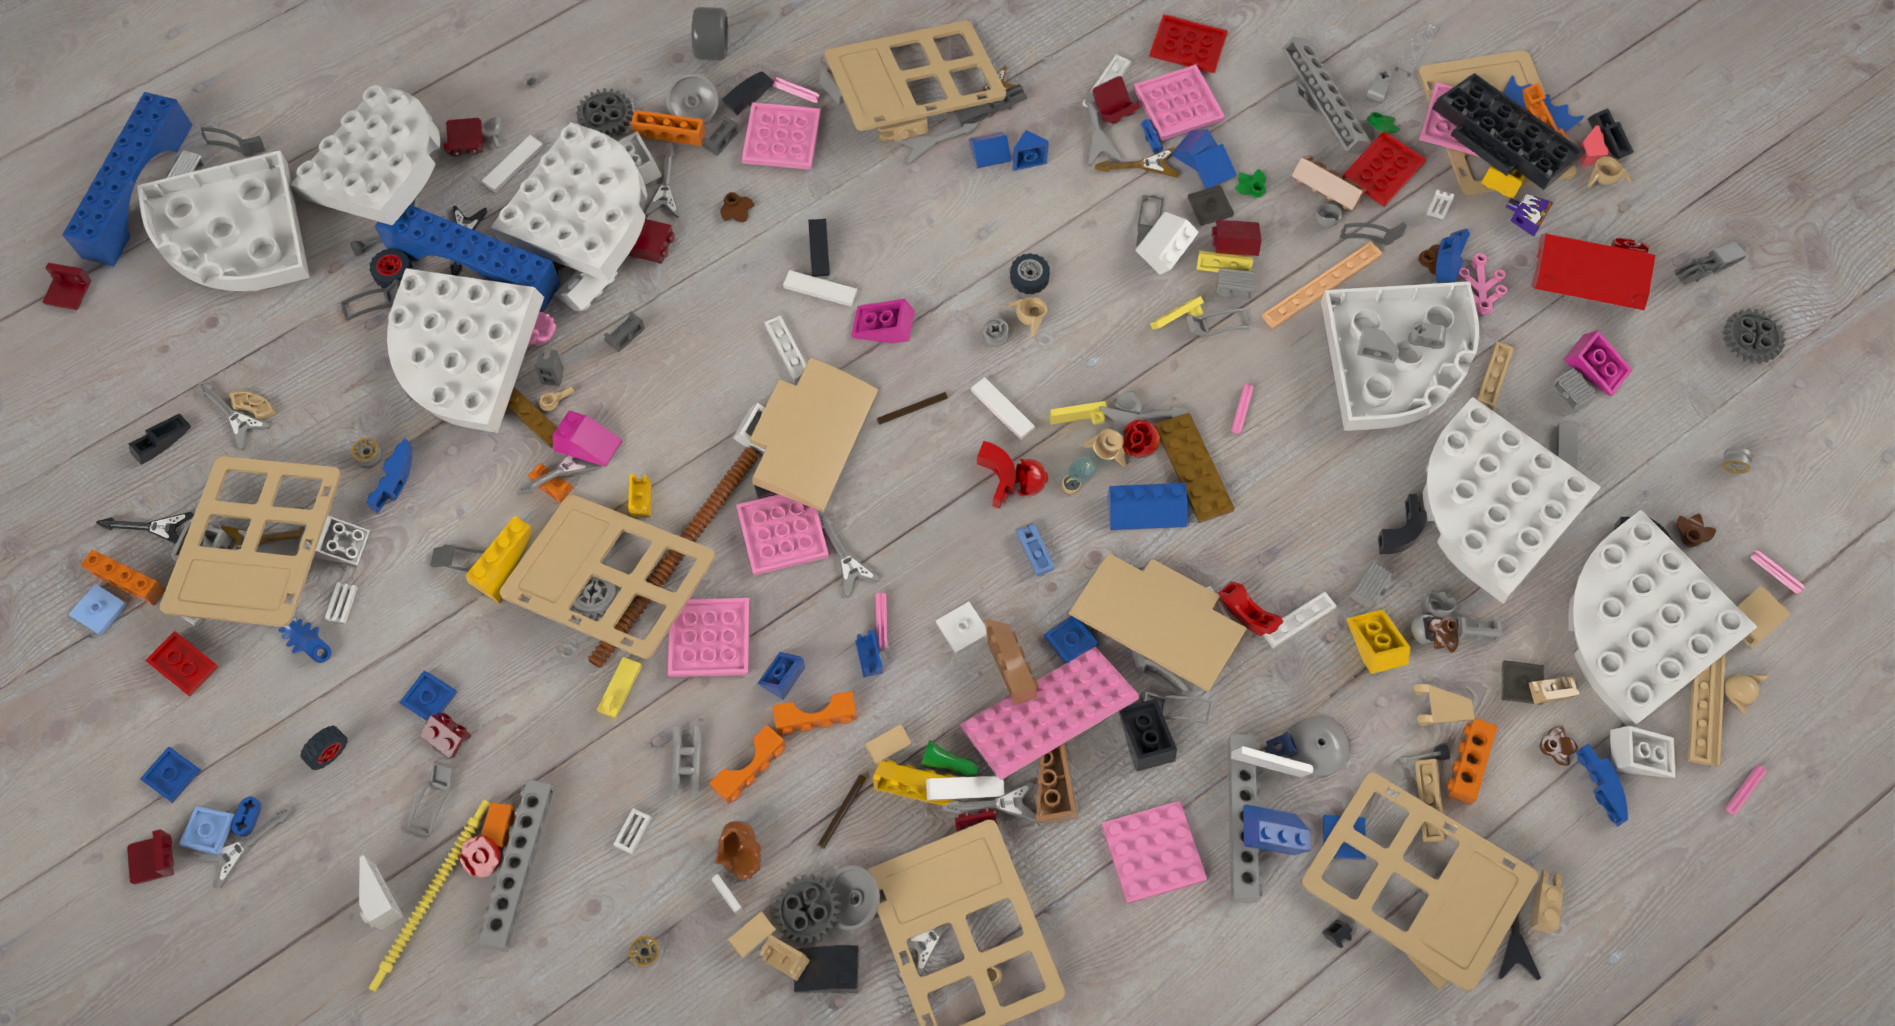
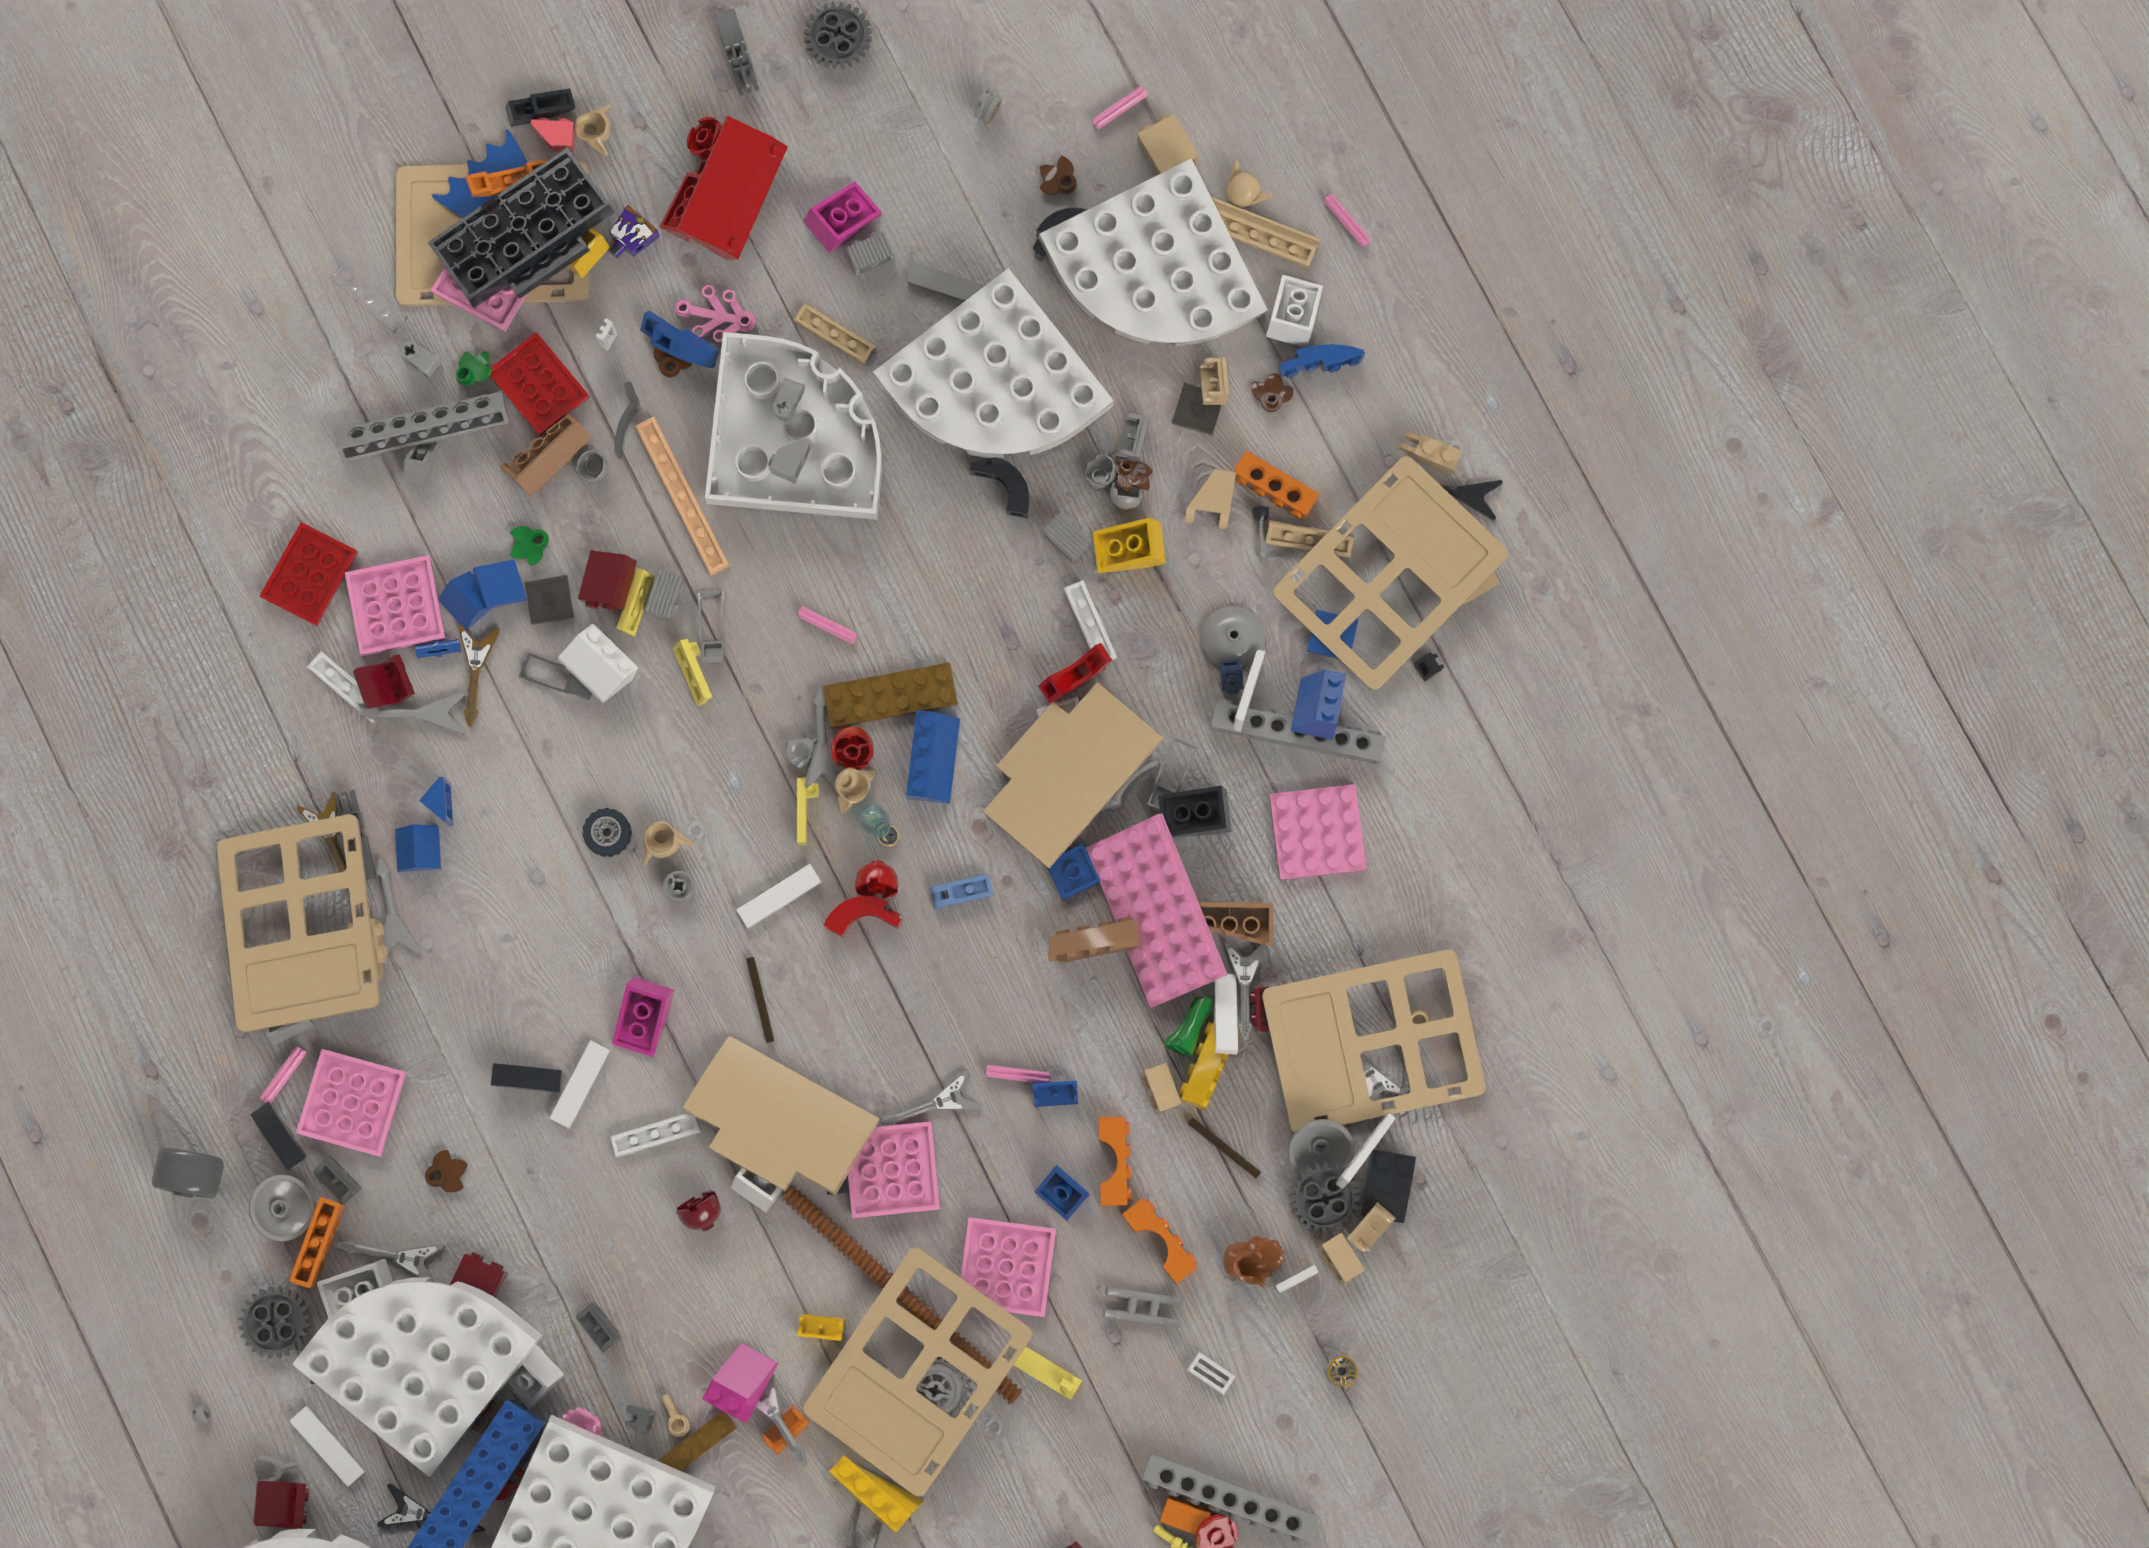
camera: 80 degrees left, 15 degrees up
(725, 387) = (700, 1212): none -> dark red cylinder
(856, 938) = (1365, 1151): none -> white tile
(962, 627) = (1040, 987): white plate -> none

